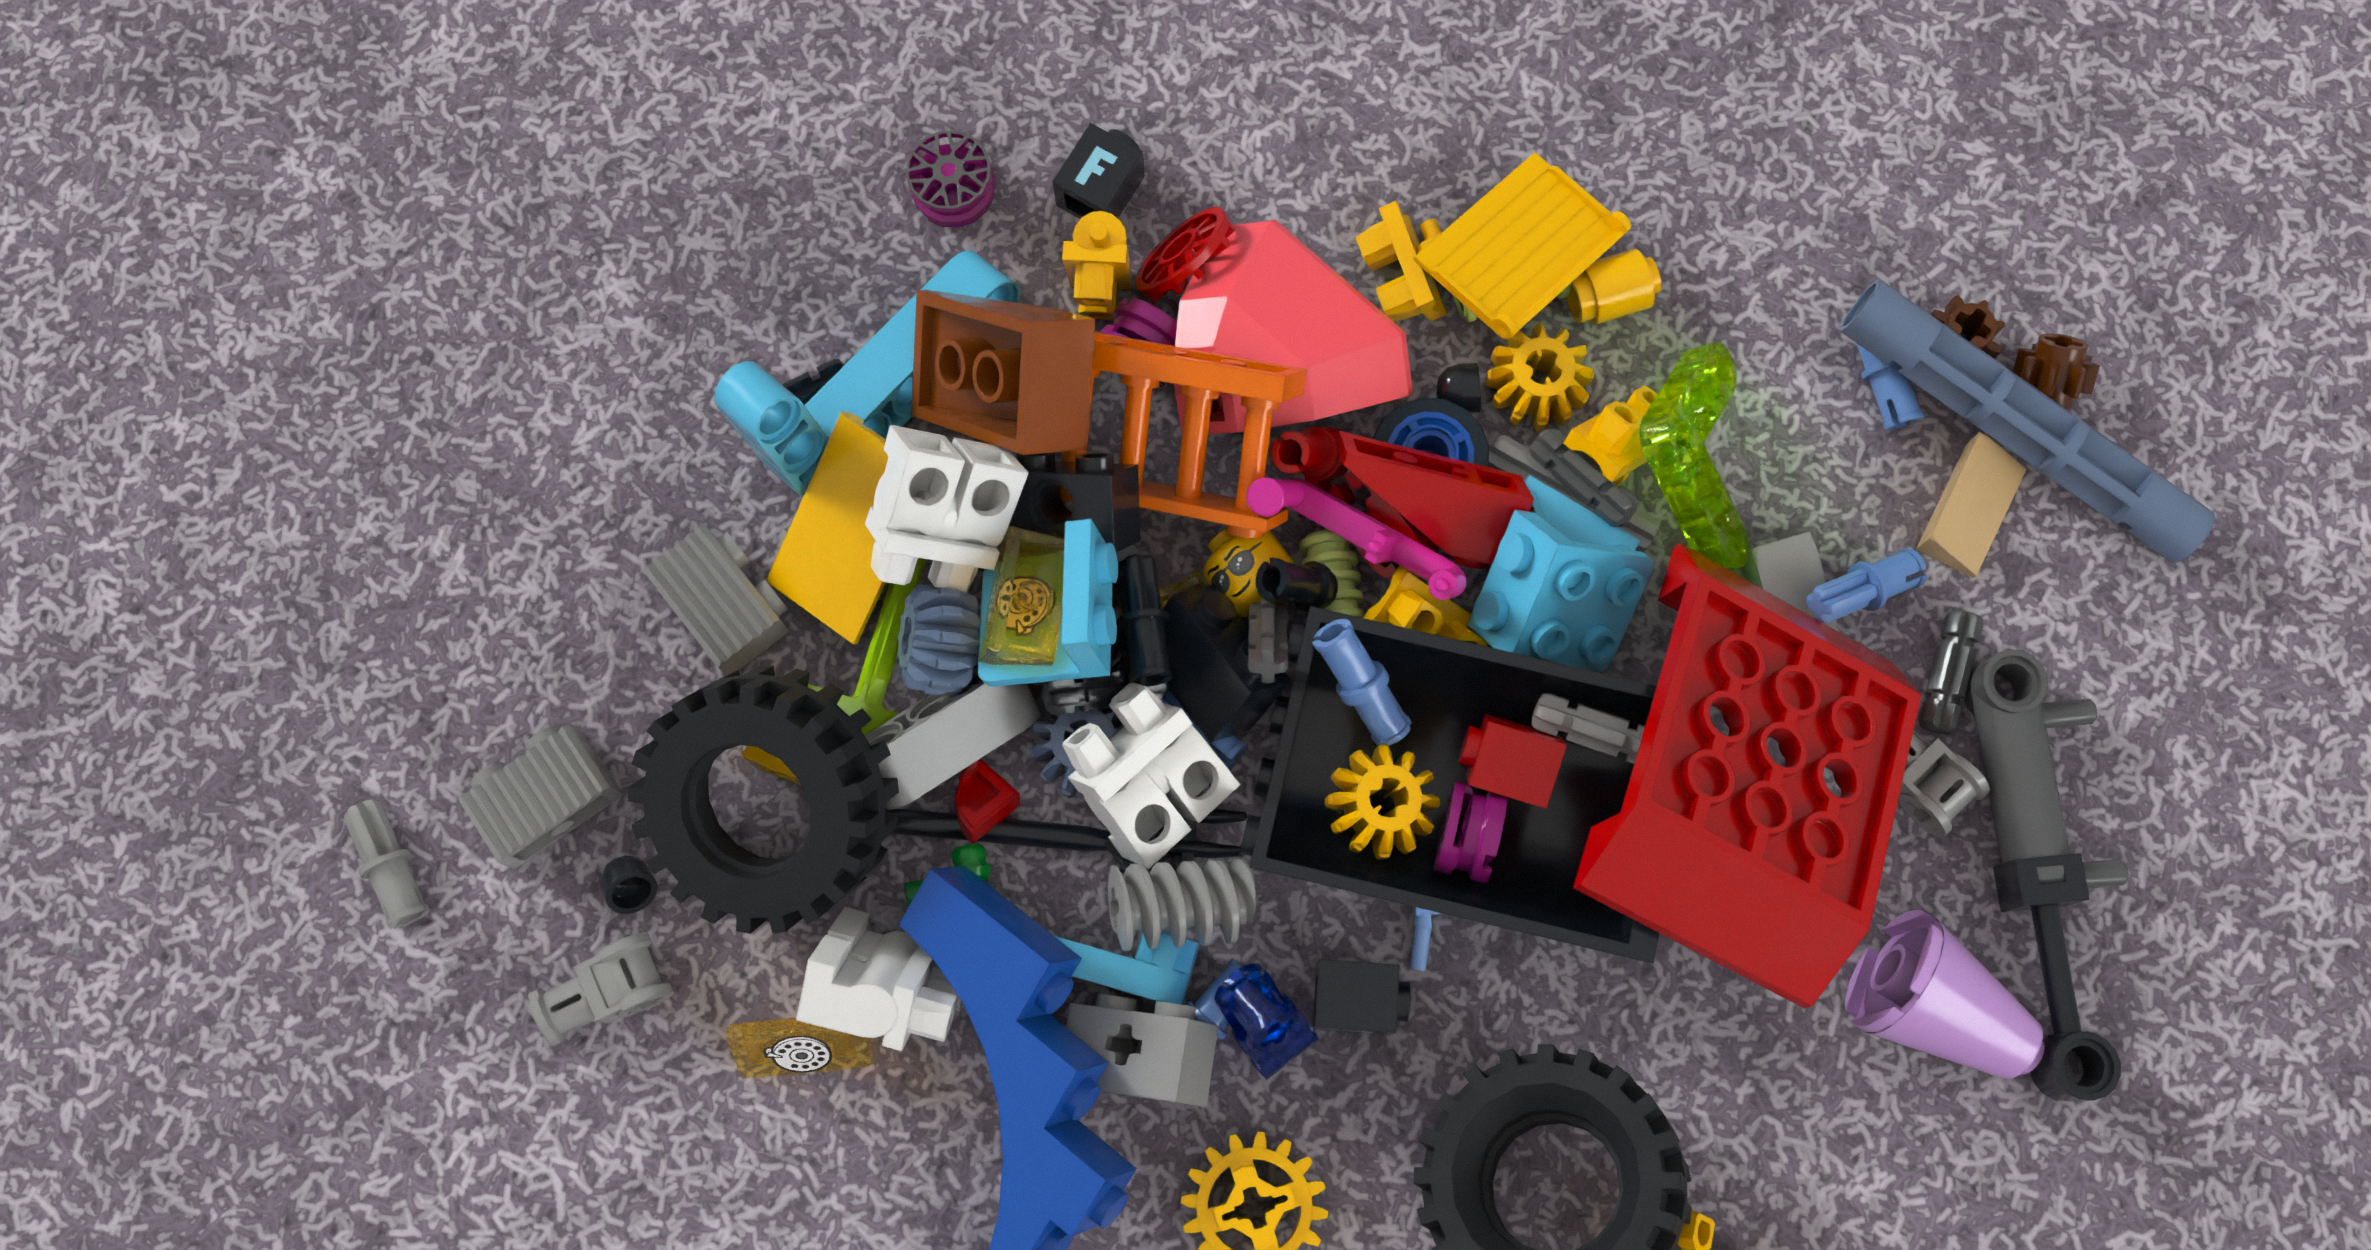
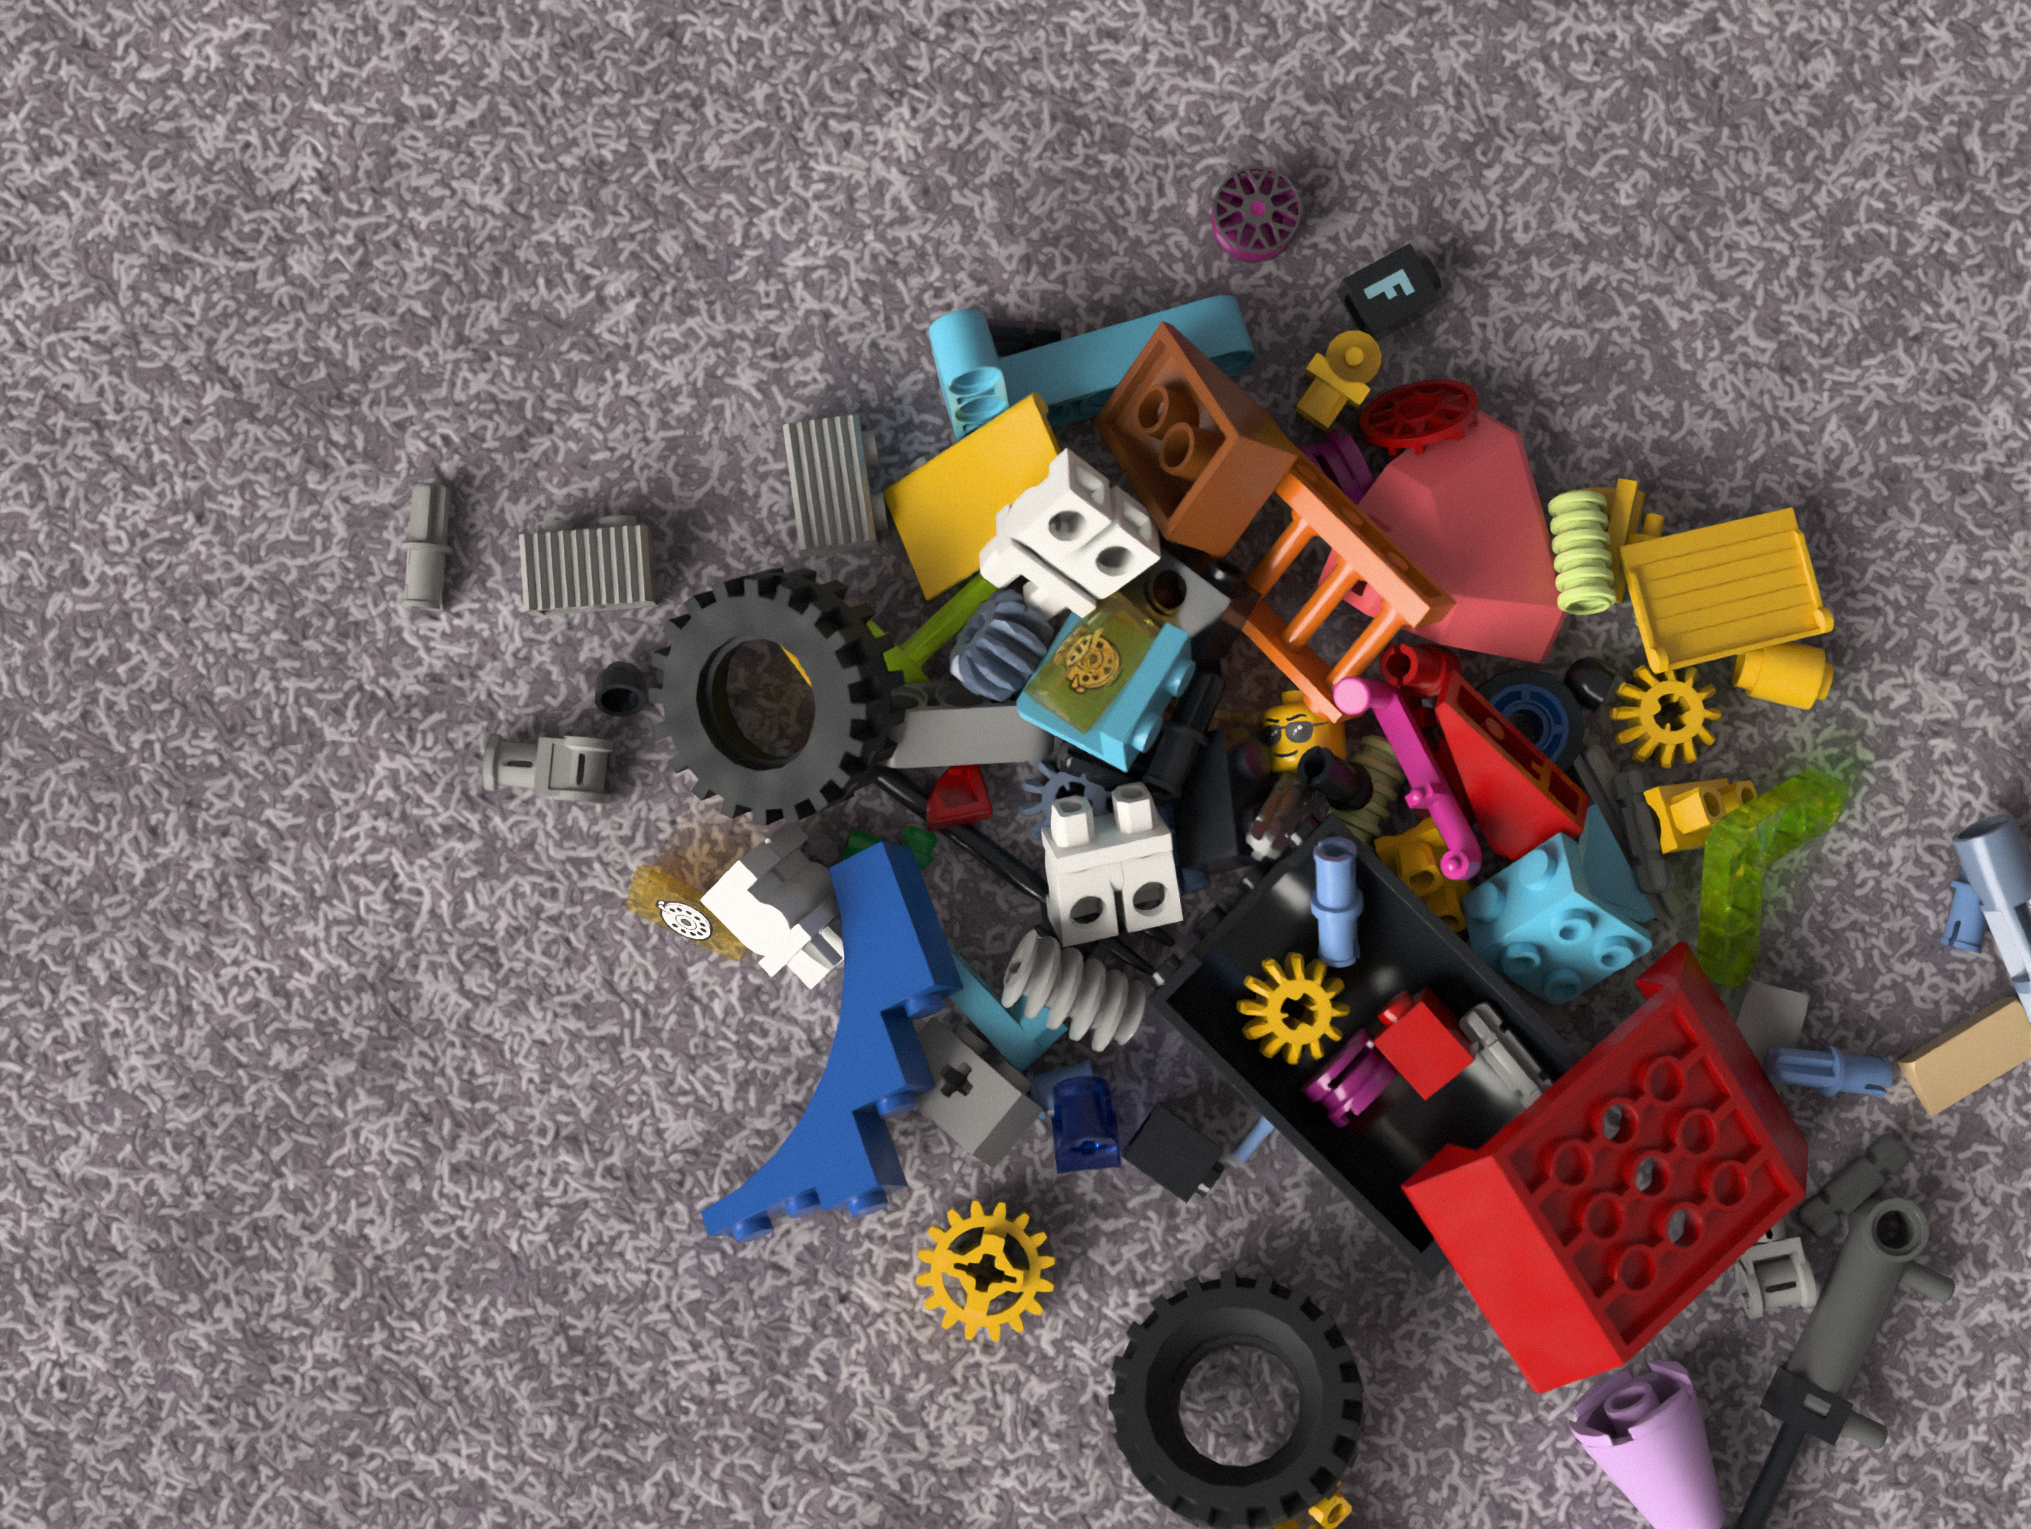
camera: 25 degrees right, 10 degrees up
(1386, 280) = (1582, 552): none -> yellowish green piece

